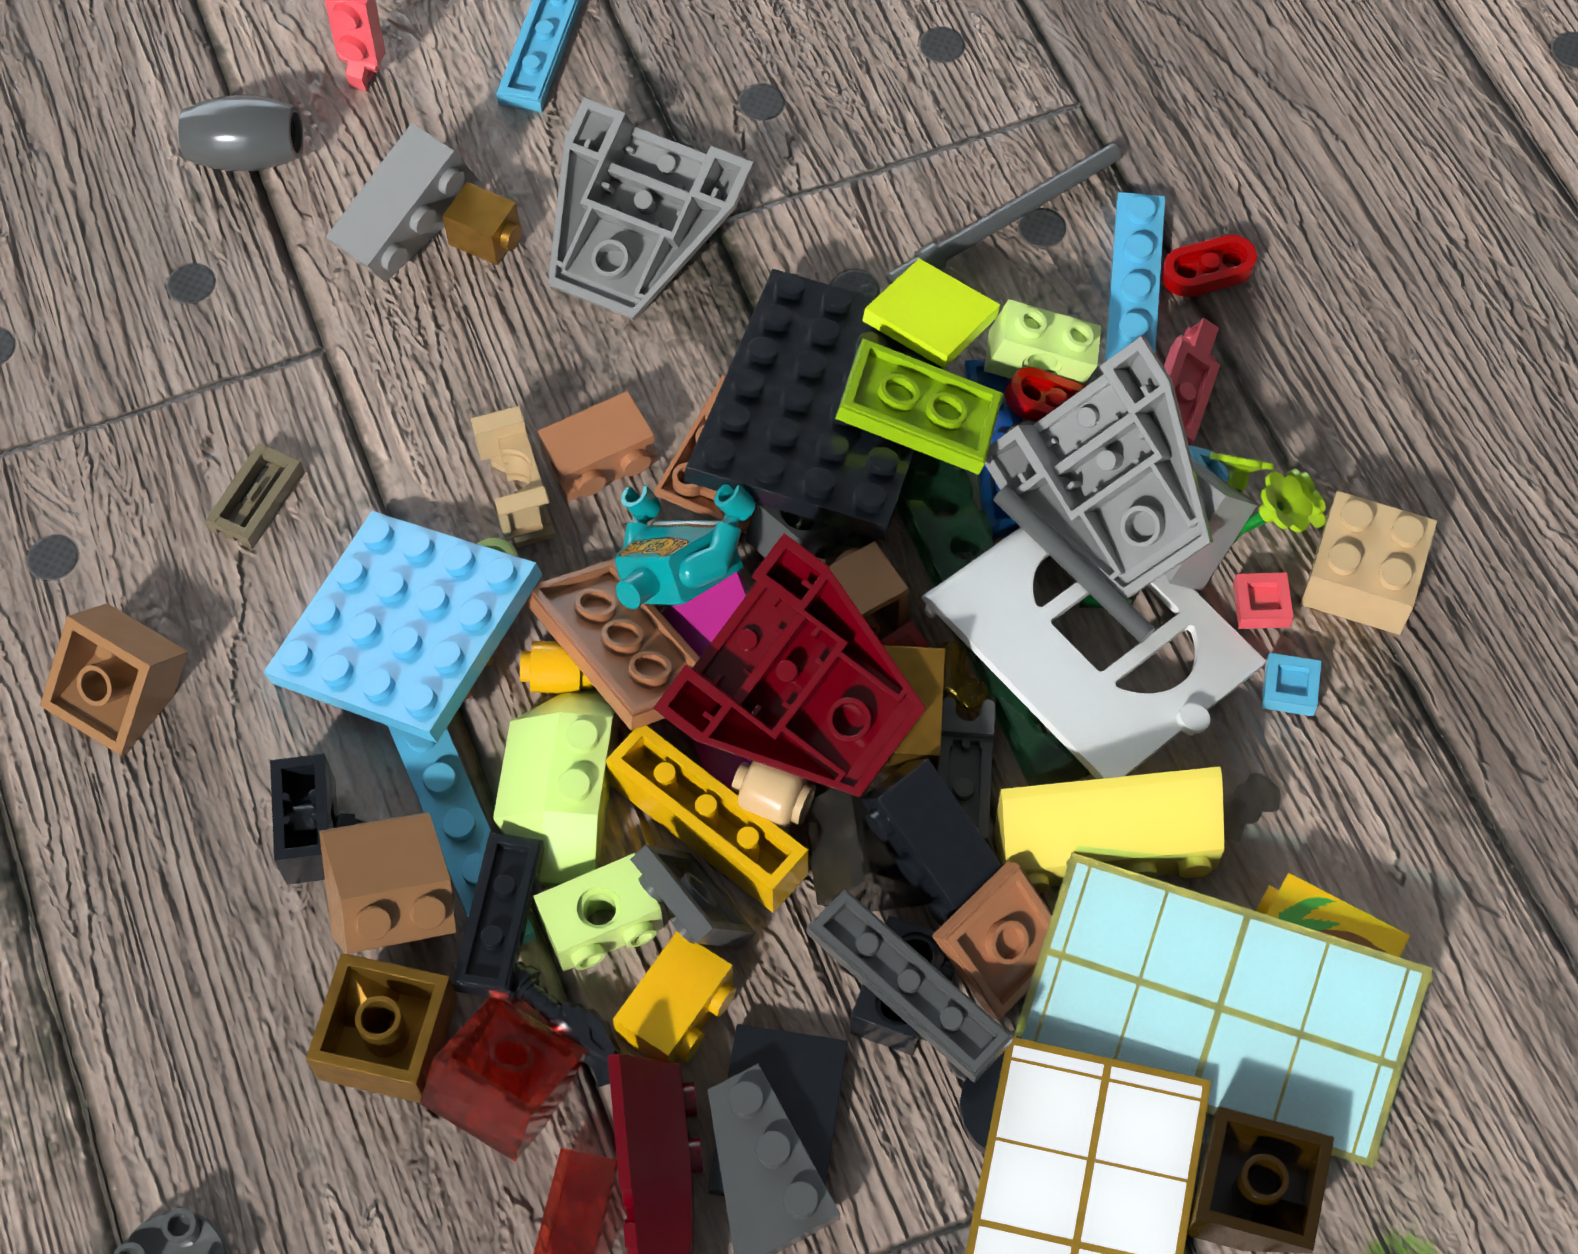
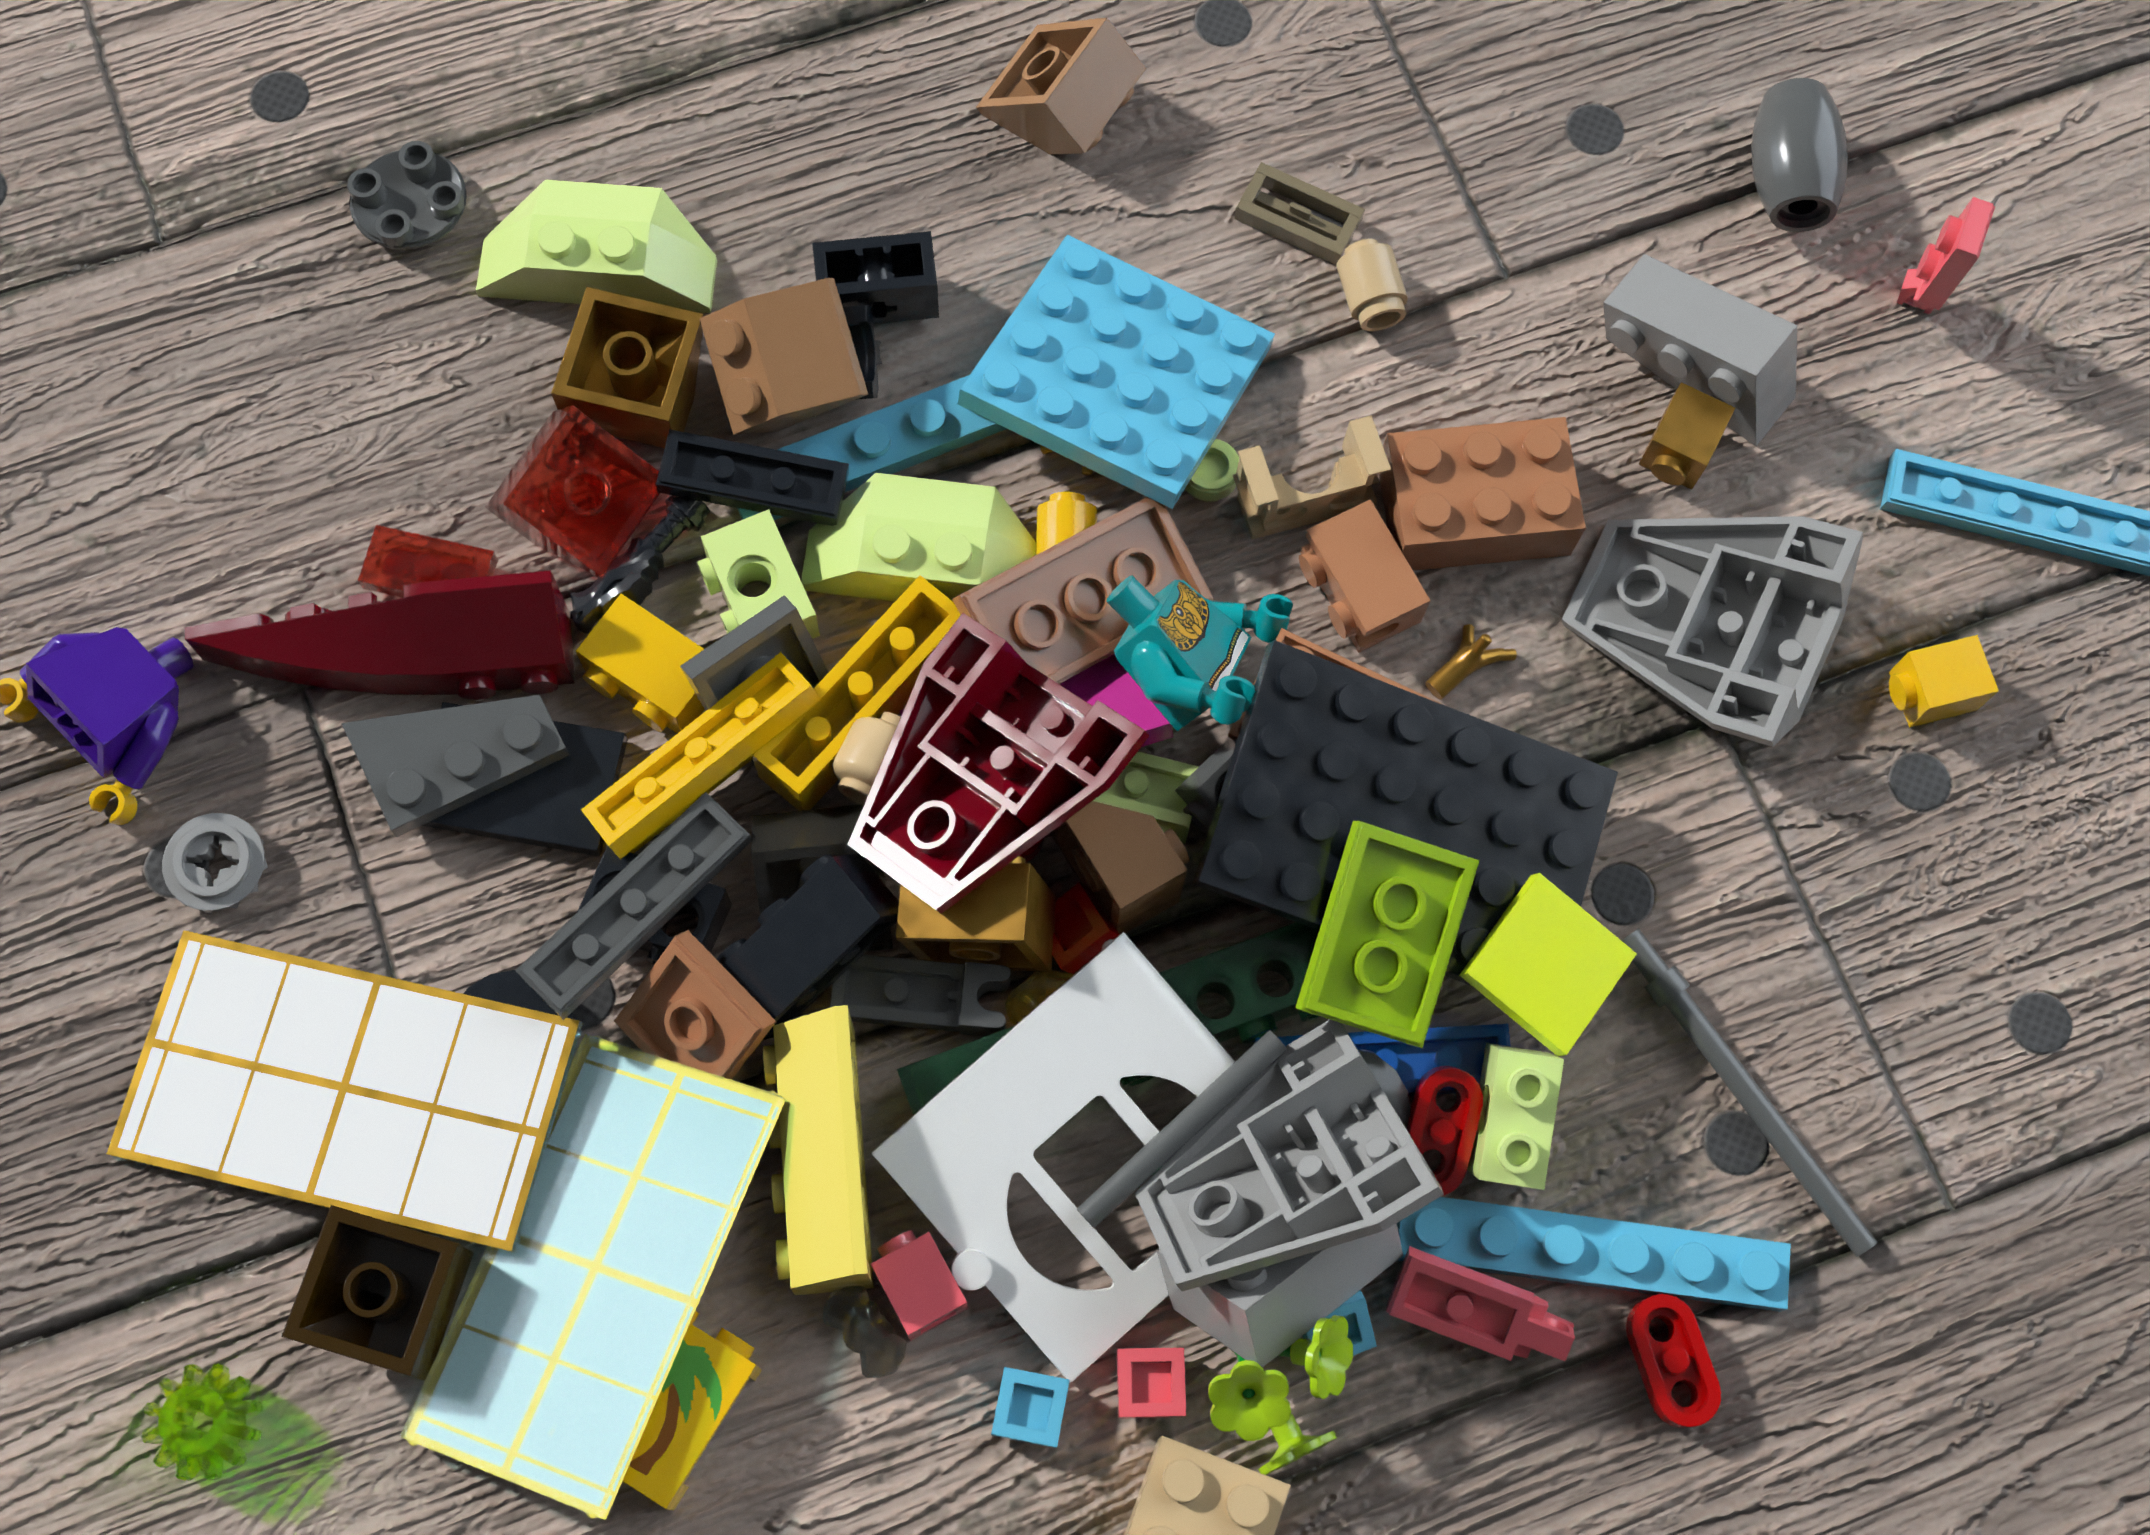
camera: 85 degrees right, 10 degrees up
(243, 1084) = (599, 239): none -> yellowish green wedge
(331, 436) = (1372, 284): none -> tan brick
(529, 352) = (1482, 493): none -> nougat brick
(670, 384) = (1467, 659): none -> pearl gold bar
(689, 74) = (1942, 681): none -> yellow brick
(773, 935) = (700, 756): none -> yellow fence
(1208, 748) = (918, 1283): none -> coral brick

